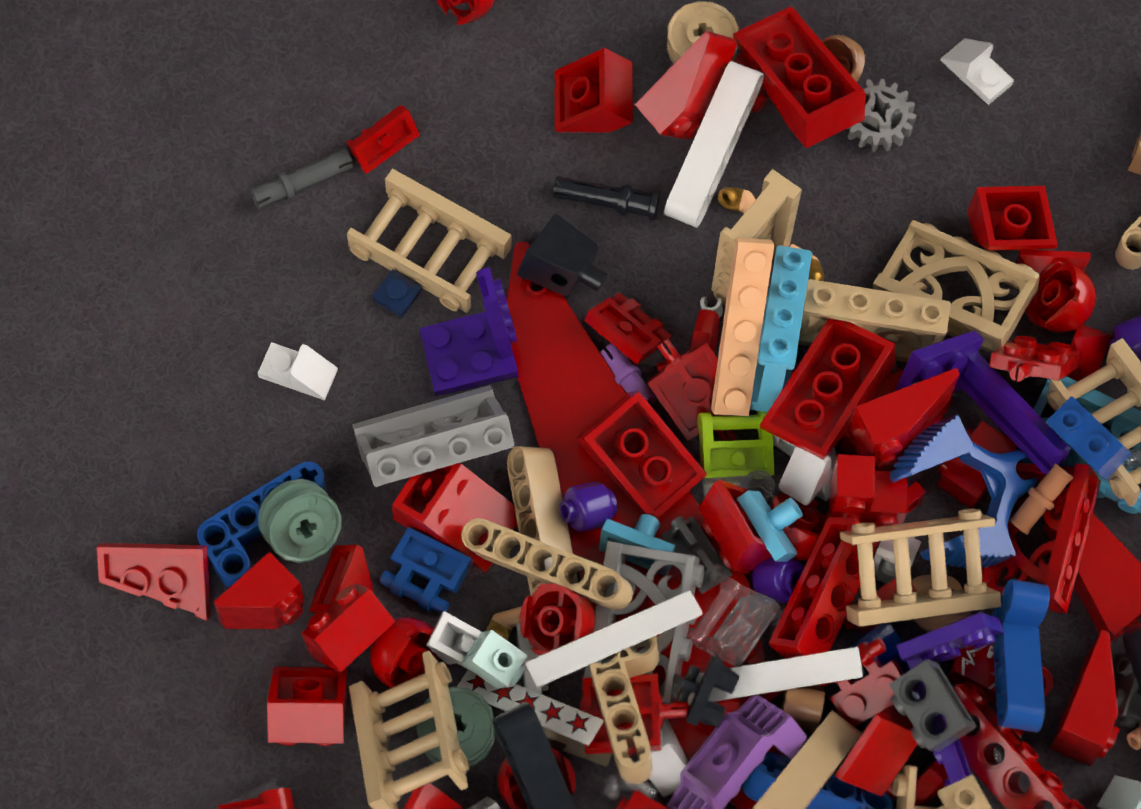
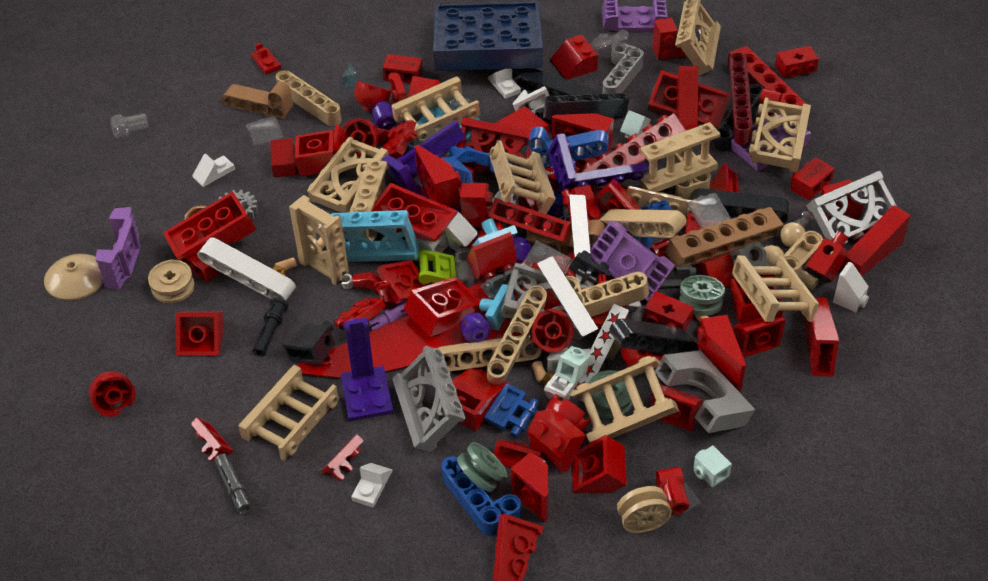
camera: 85 degrees left, 20 degrees down
(210, 762) = (644, 509): none -> tan wheel
(335, 319) = (349, 450): none -> plate
(397, 293) = (322, 432): dark blue plate -> none
(685, 91) = (213, 275): slope -> none
(742, 326) = (378, 237): light nougat plate -> none
(938, 700) = (599, 163): dark grey brick -> none
(1011, 169) = (283, 157): none -> red brick
(1041, 498) = (477, 138): nougat pin -> none
(1088, 142) = (264, 131): none -> clear piece
(1088, 438) = (450, 110): blue brick -> none

